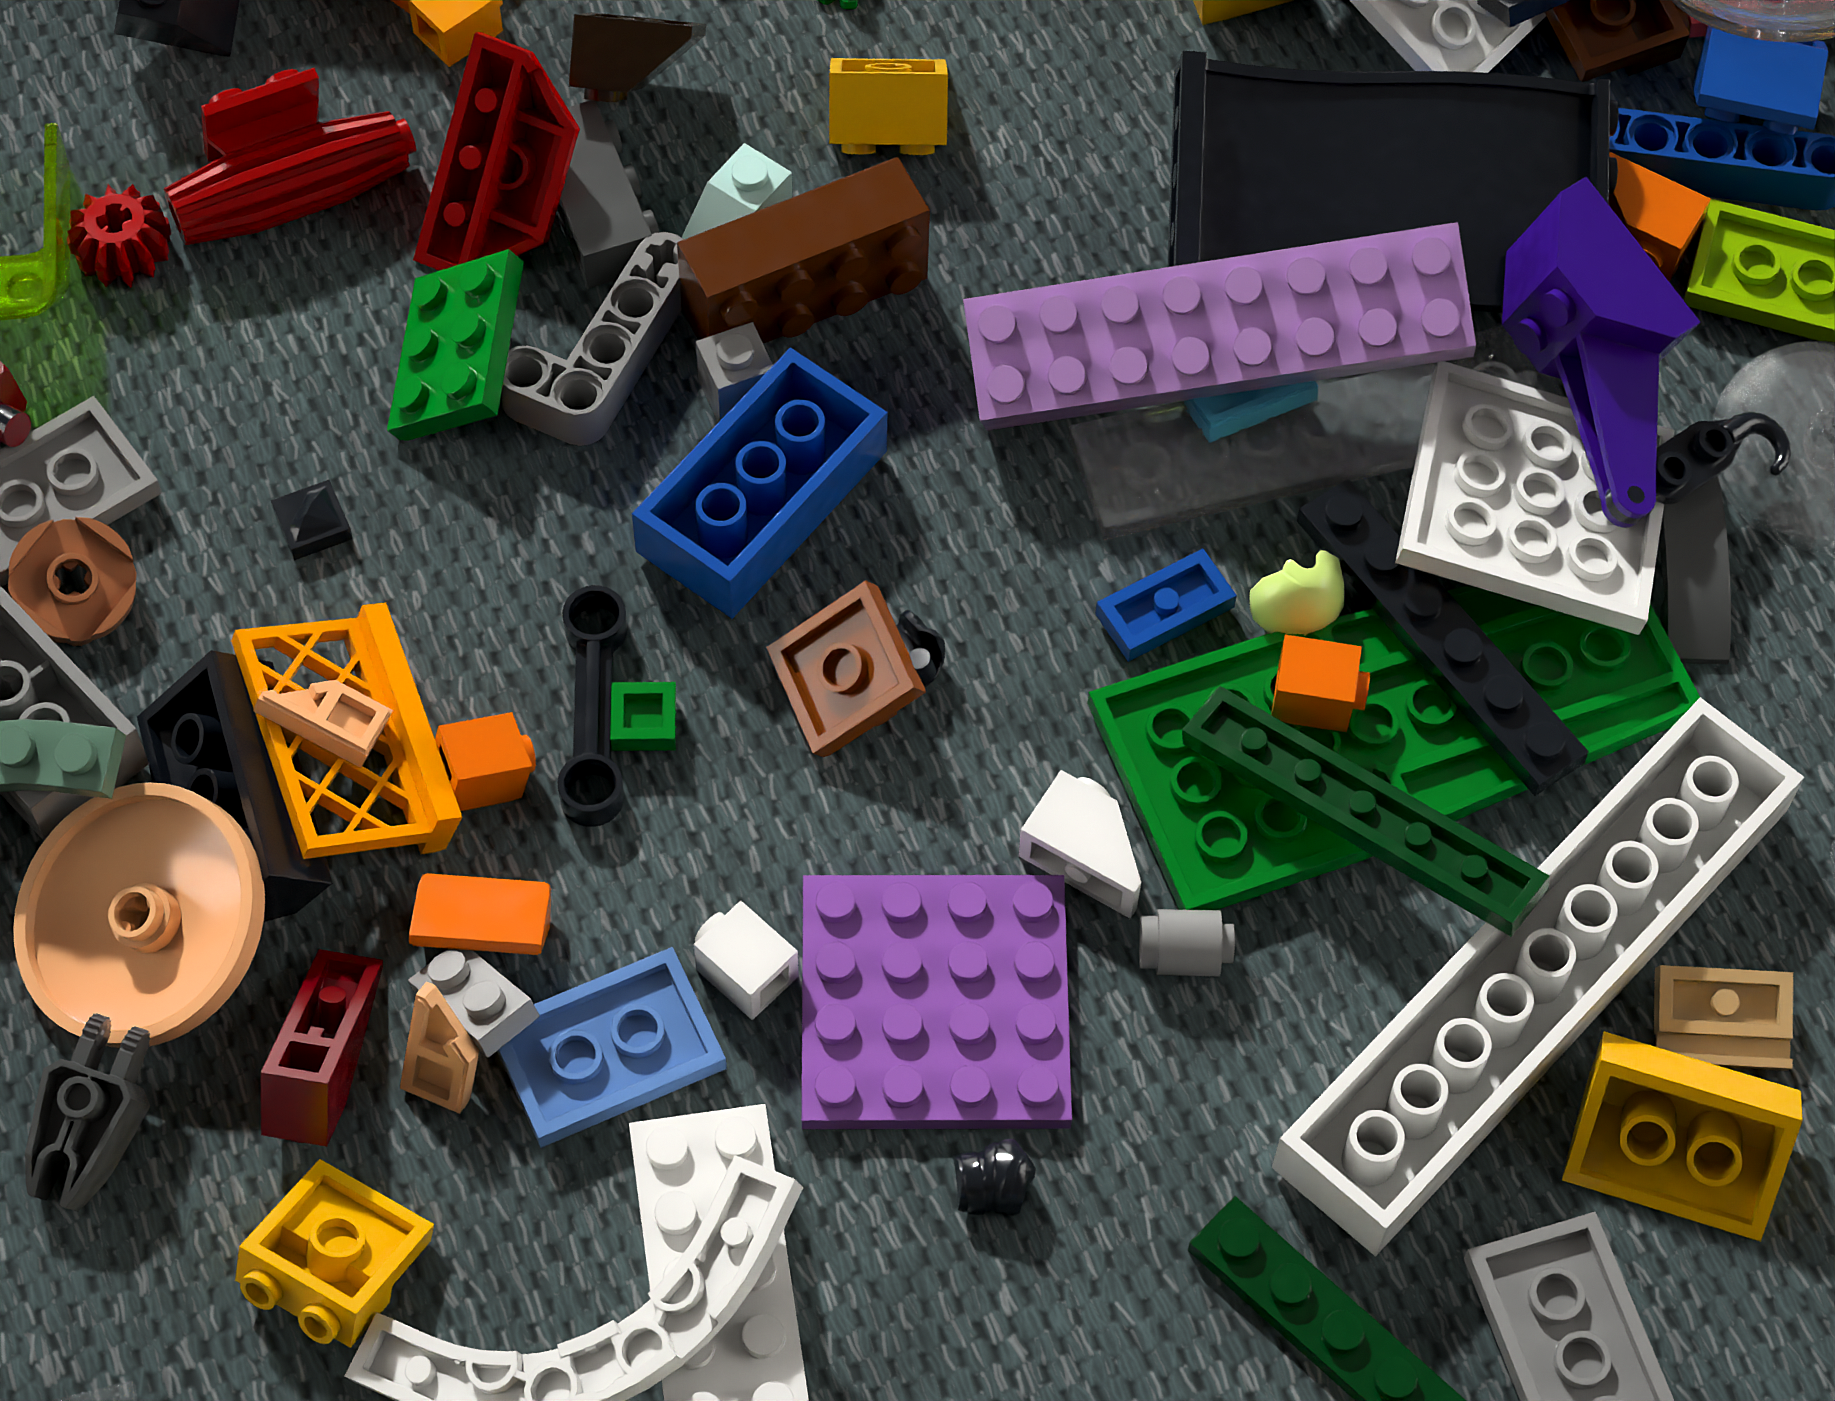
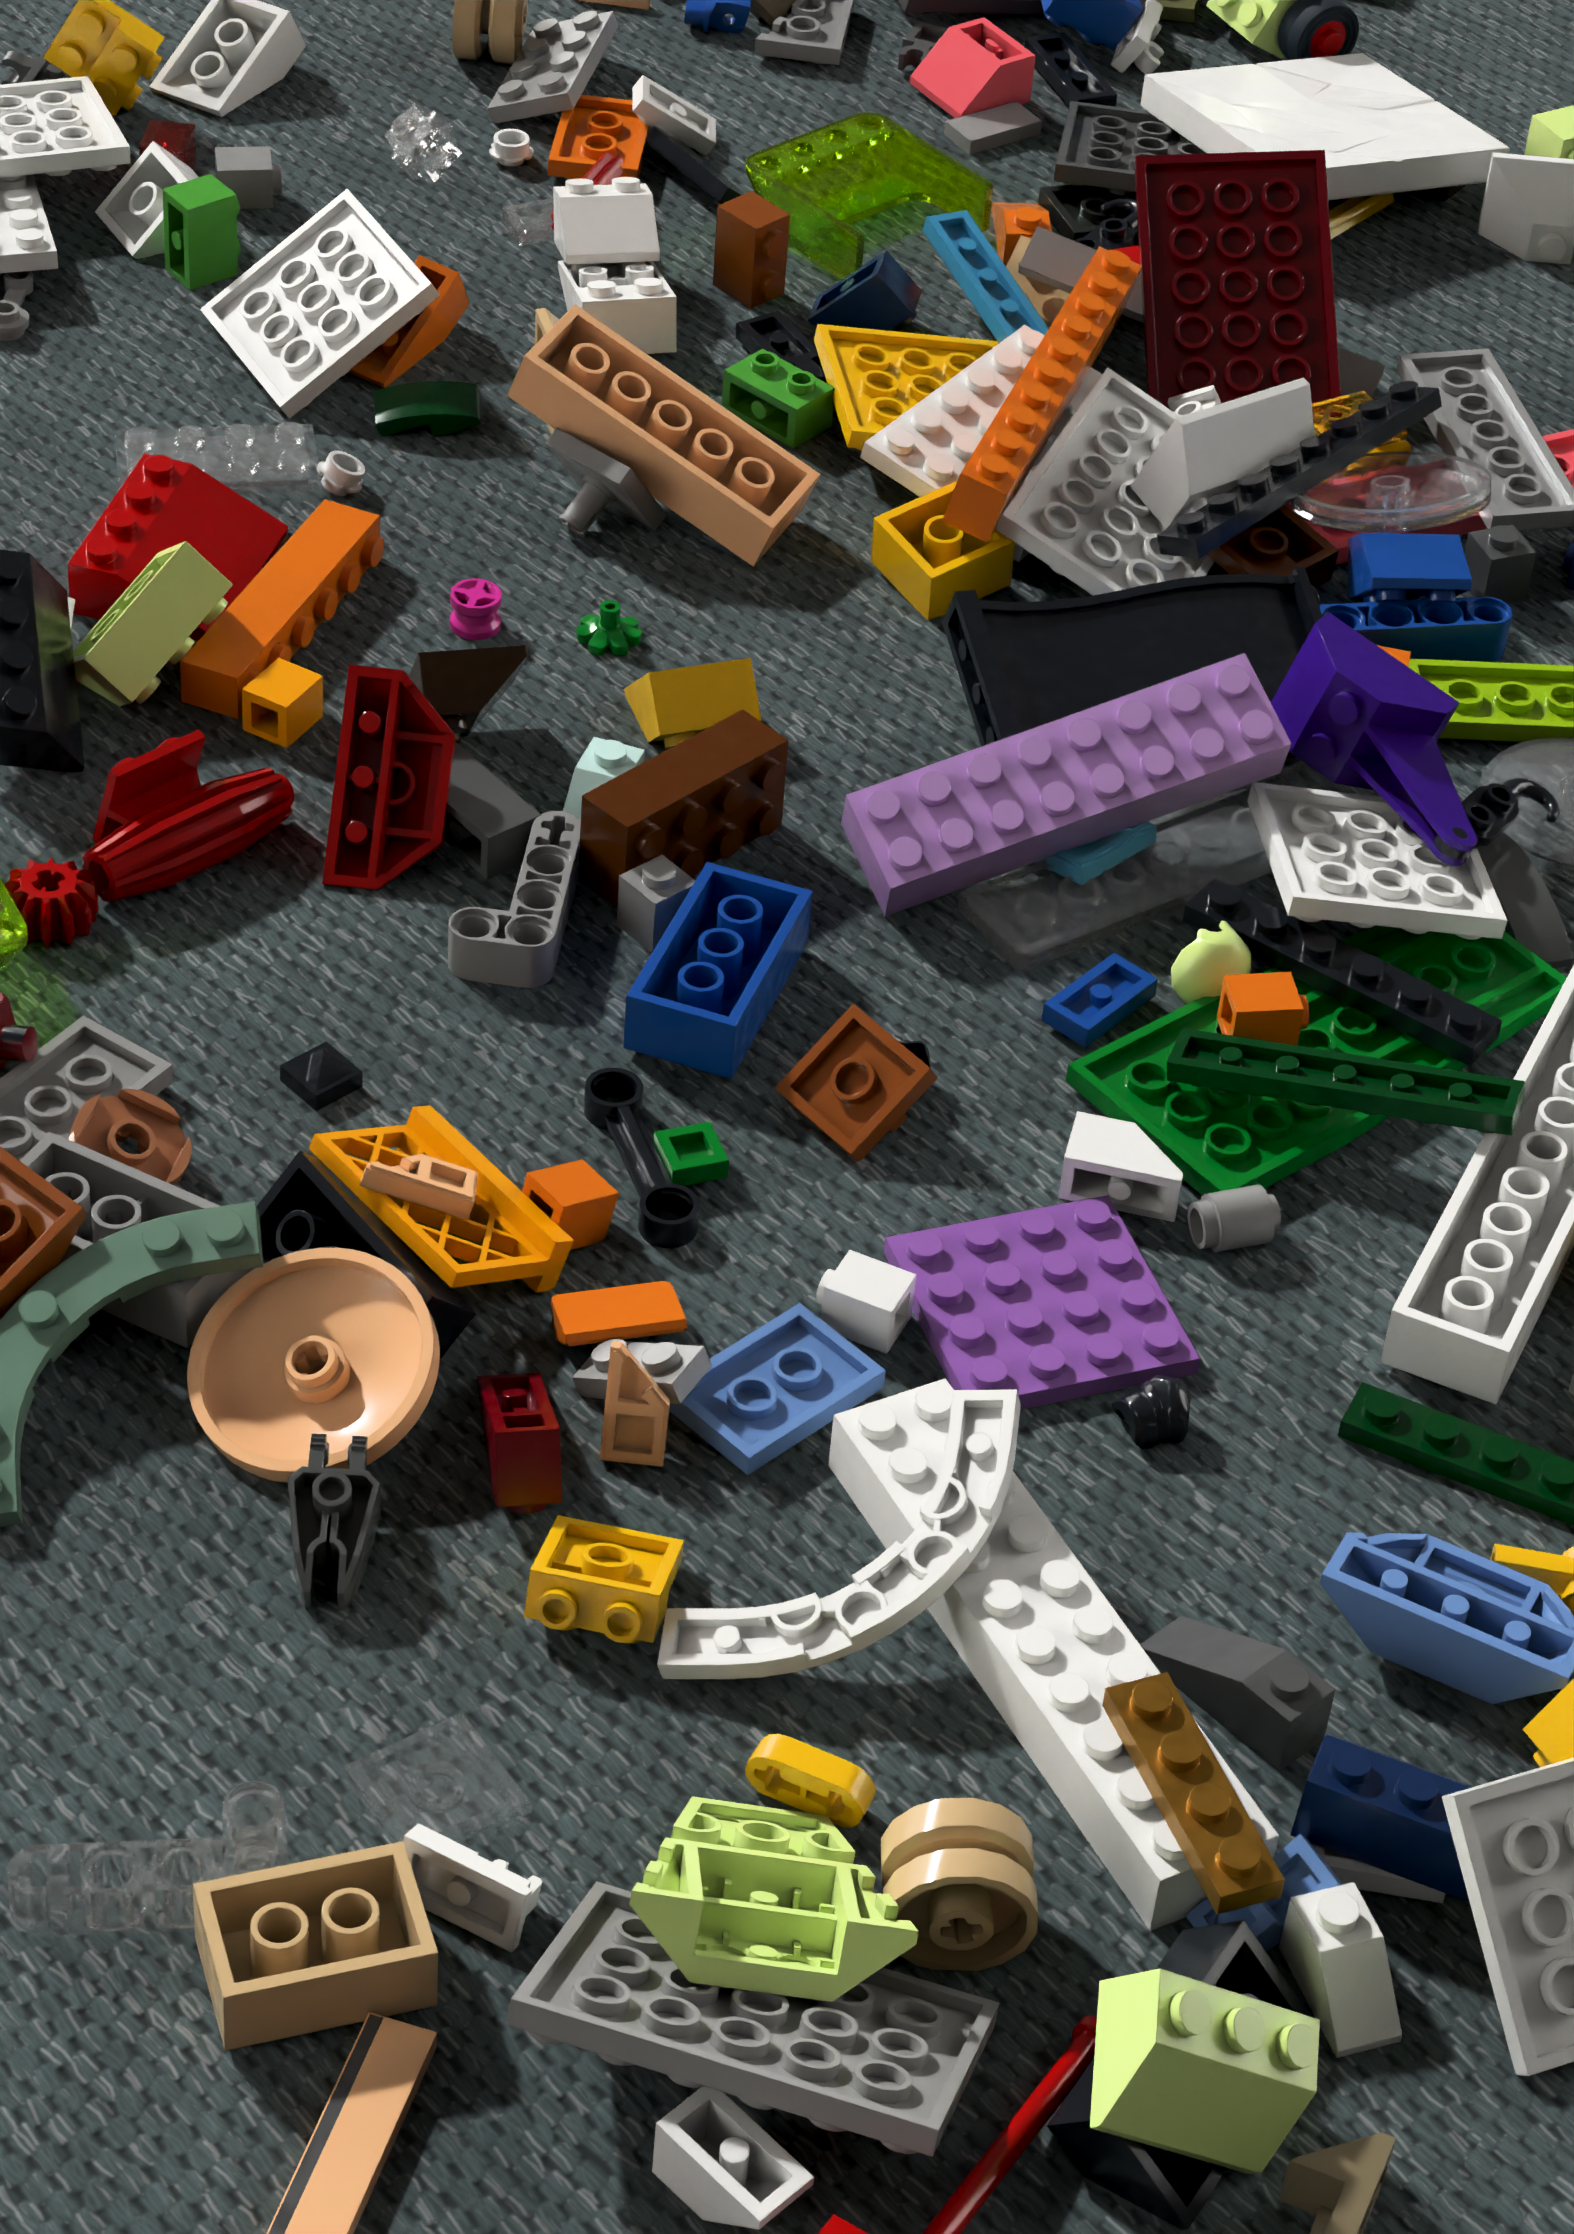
camera: 20 degrees left, 20 degrees down
(455, 346) = (400, 924): green plate -> none

